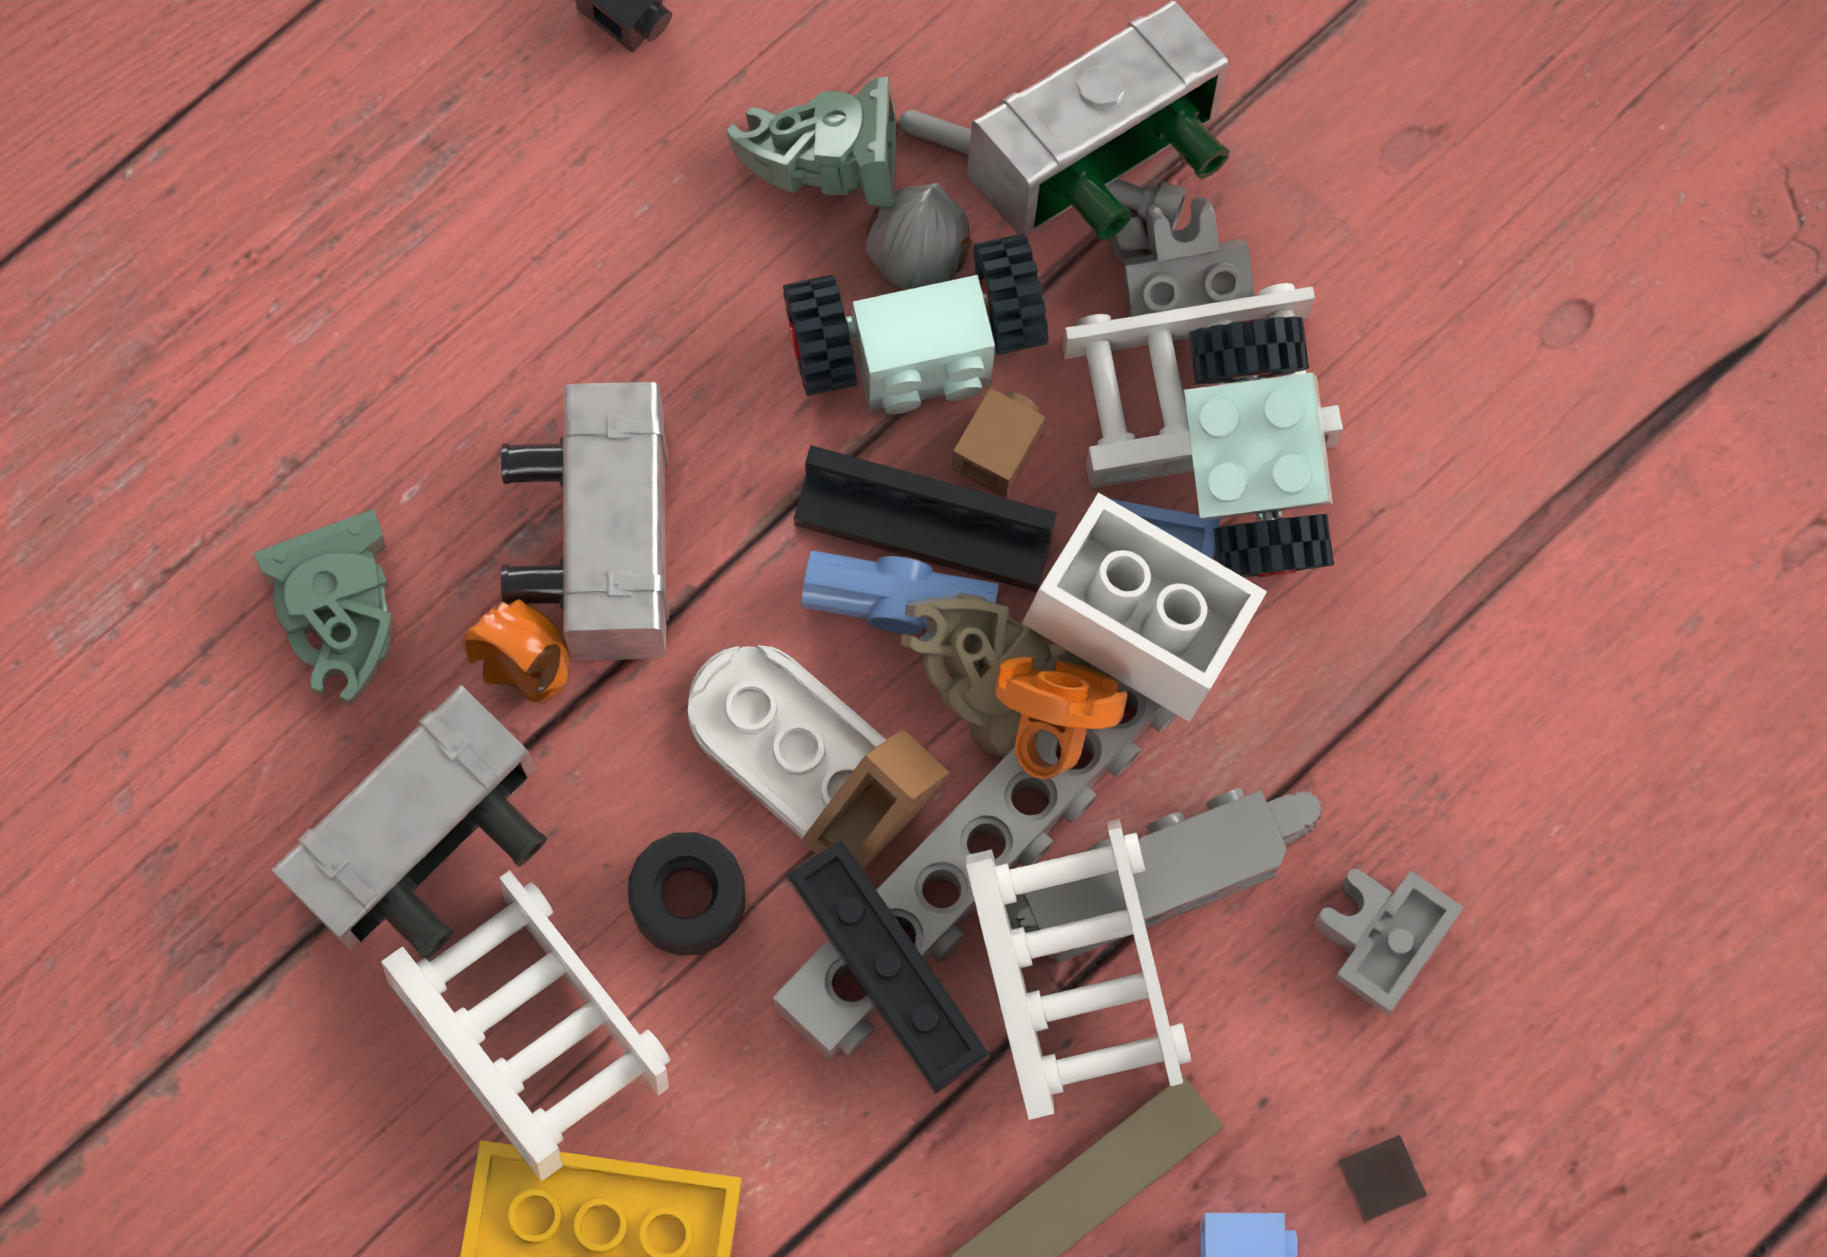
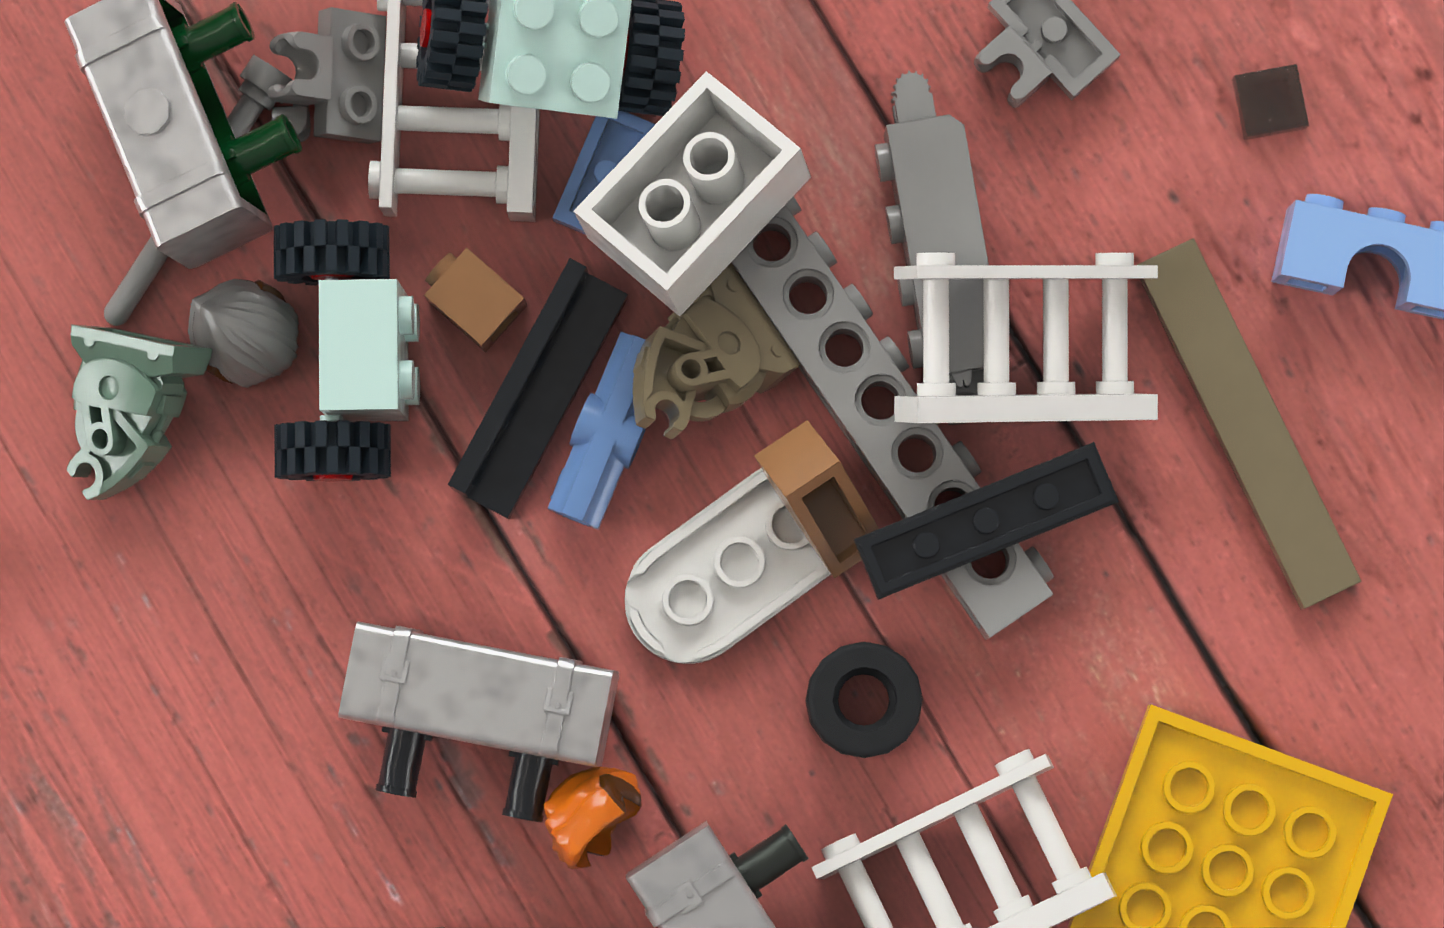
camera: 75 degrees left, 10 degrees up
(1058, 702) = (768, 294): orange tile -> none

